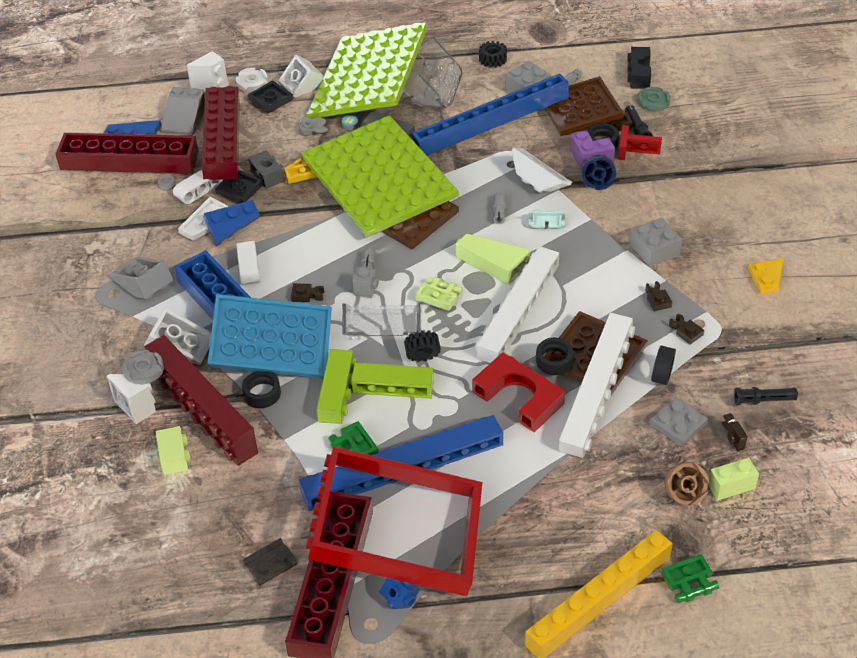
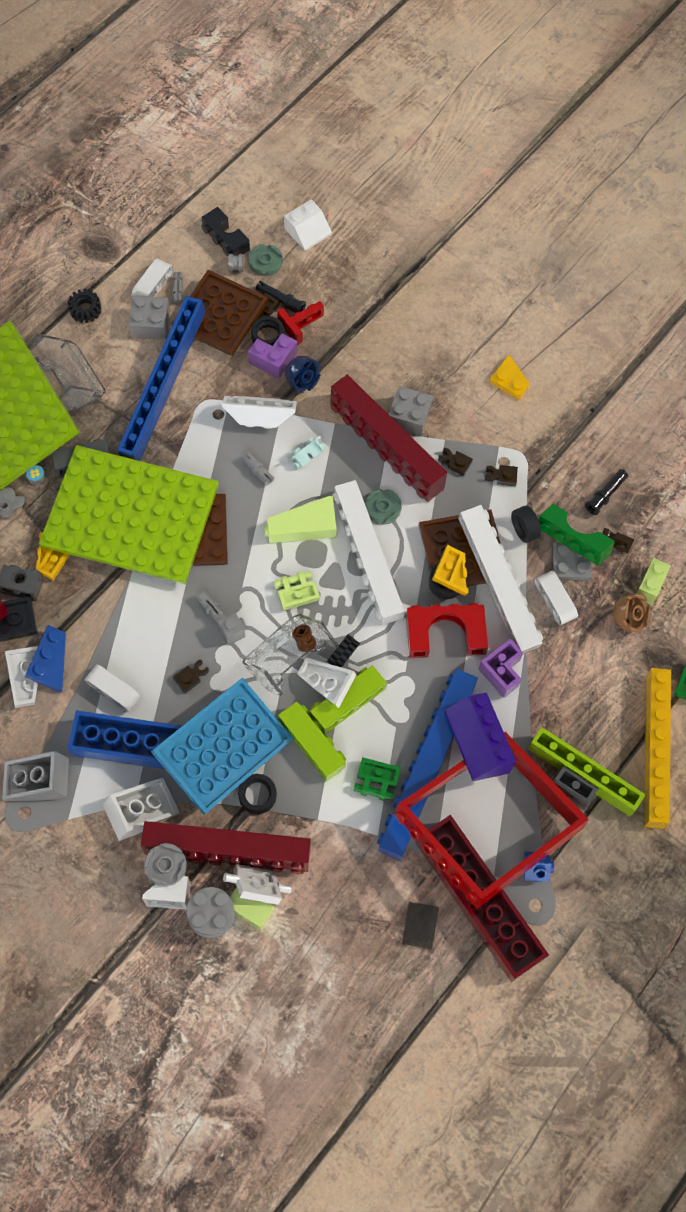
camera: 50 degrees left, 20 degrees up
(138, 421) = (210, 912): none -> light grey wheel
(189, 434) = (257, 884): none -> white plate
(390, 353) = (327, 679): none -> white wing
(405, 319) = (304, 639): none -> reddish brown wheel
(452, 463) = (480, 737): none -> dark purple slope
(493, 563) = (575, 787): none -> dark grey brick
(516, 561) = (610, 787): none -> lime brick
(533, 438) = (498, 668): none -> medium lavender brick
(558, 64) = (153, 279): none -> white beam
(560, 345) = (452, 570): none -> yellow wing
(565, 288) = (383, 506): none -> sand green tile
(613, 245) = (387, 438): none -> dark red brick
(627, 86) = (235, 262): none -> light grey wheel
(634, 433) = (556, 598): none -> white beam
(701, 414) = (593, 546): none -> green arch
(708, 94) = (307, 225): none -> white slope

